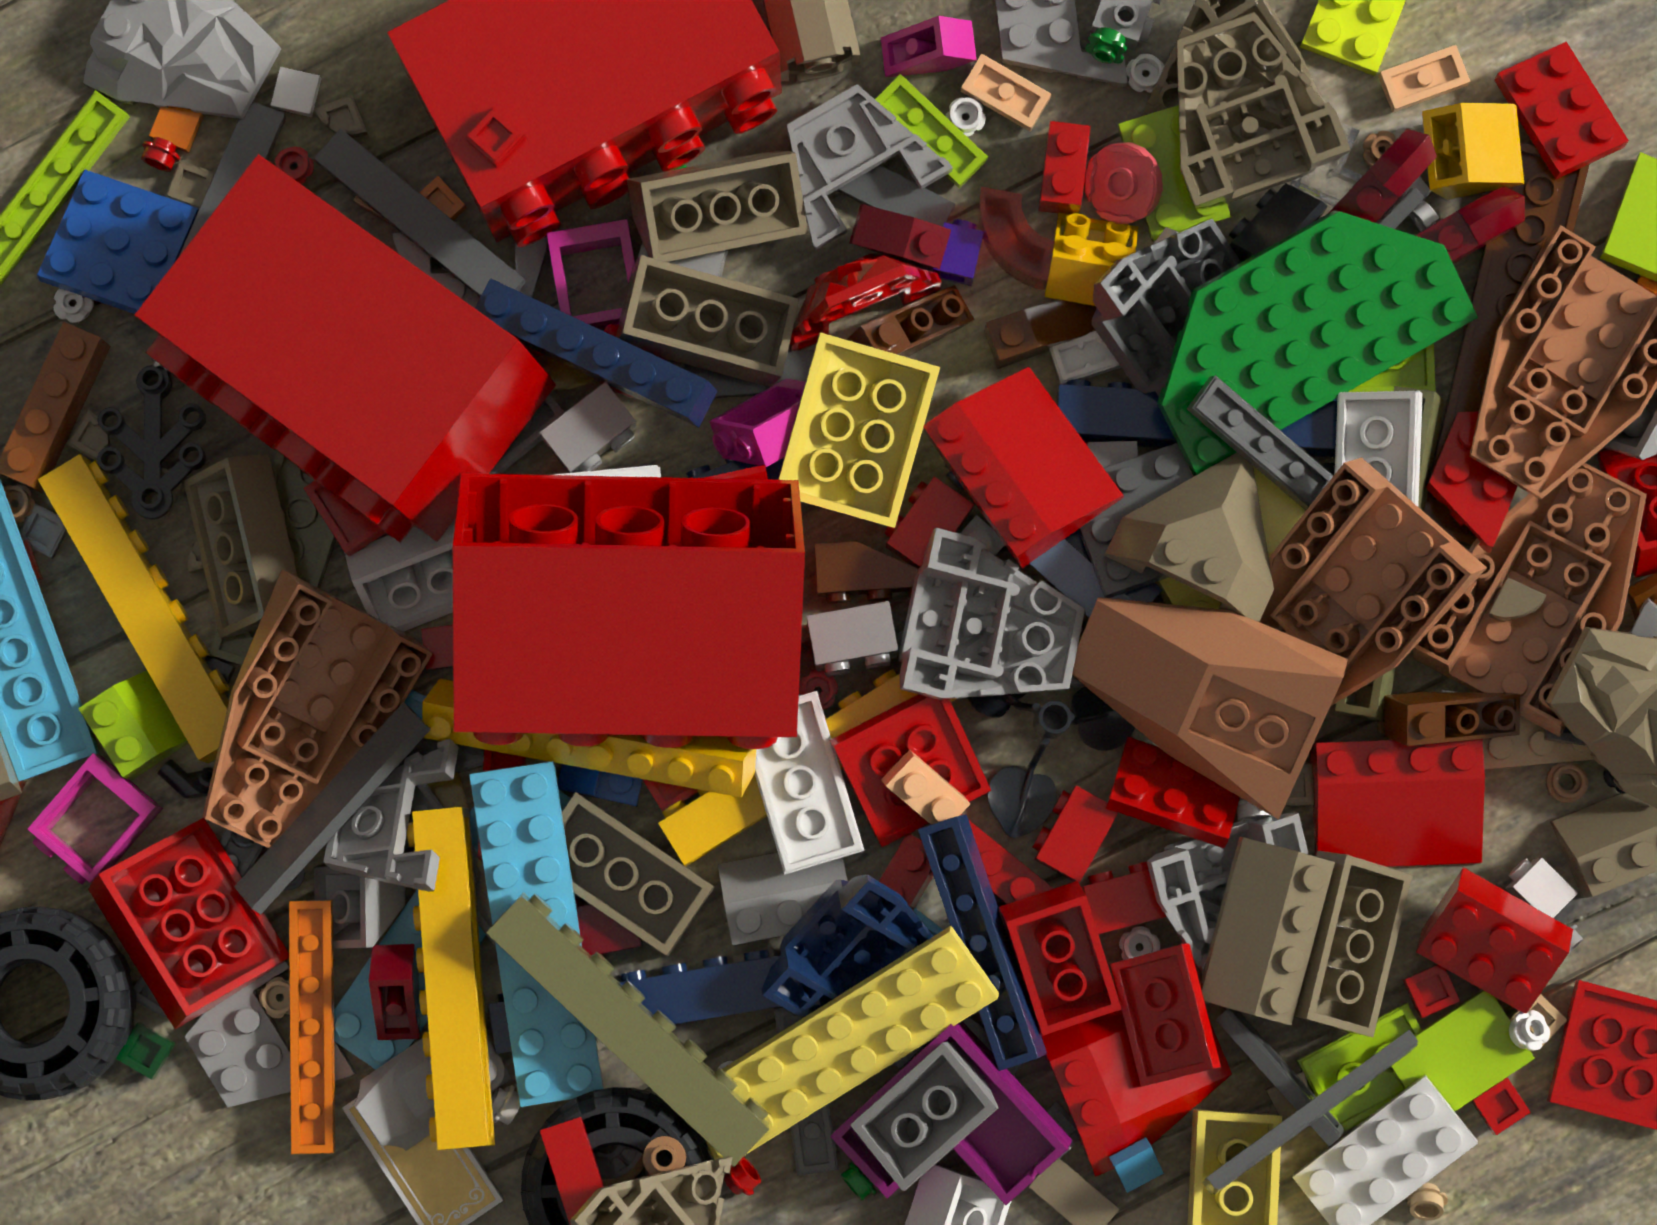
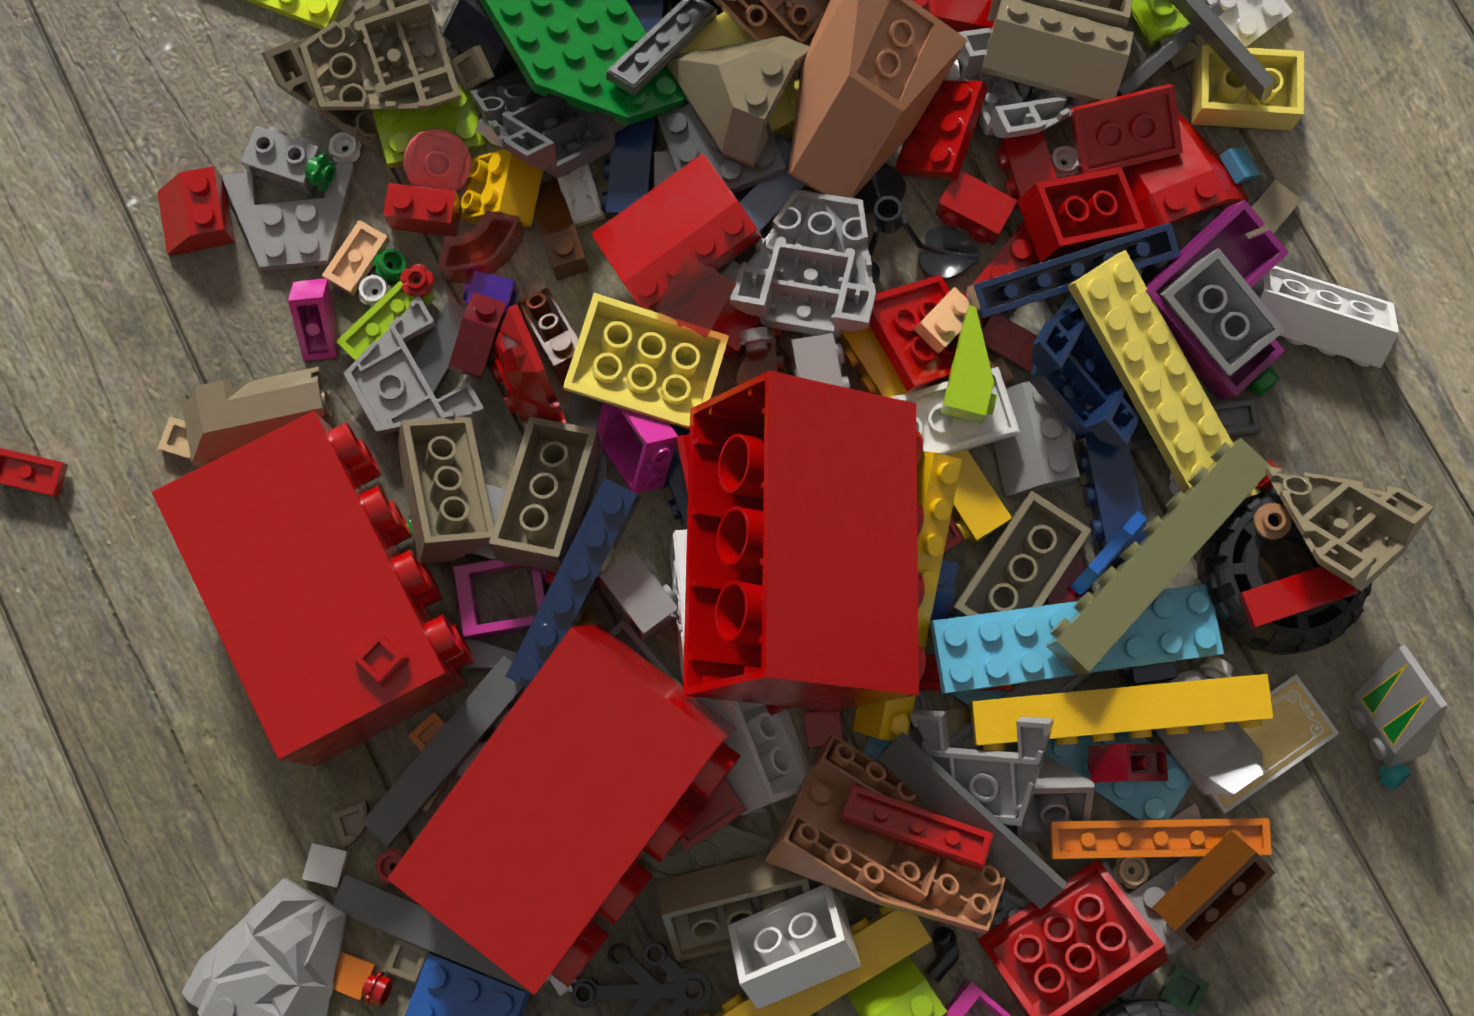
camera: 90 degrees left, 5 degrees down
(192, 603) = (793, 946): none -> white brick
(249, 1078) = (1213, 890): none -> reddish brown brick
(321, 742) = (917, 827): none -> red tile
(637, 974) = (1109, 553): none -> blue tile
(842, 811) = (971, 378): none -> lime slope
(869, 861) = (1006, 373): none -> medium nougat plate
(896, 561) = (755, 339): none -> light grey plate
(936, 486) = (696, 296): none -> clear red piece
(964, 172) = (417, 289): none -> red plate
(997, 142) = (395, 259): none -> green plate
(1240, 219) = (472, 68): none -> dark tan tile

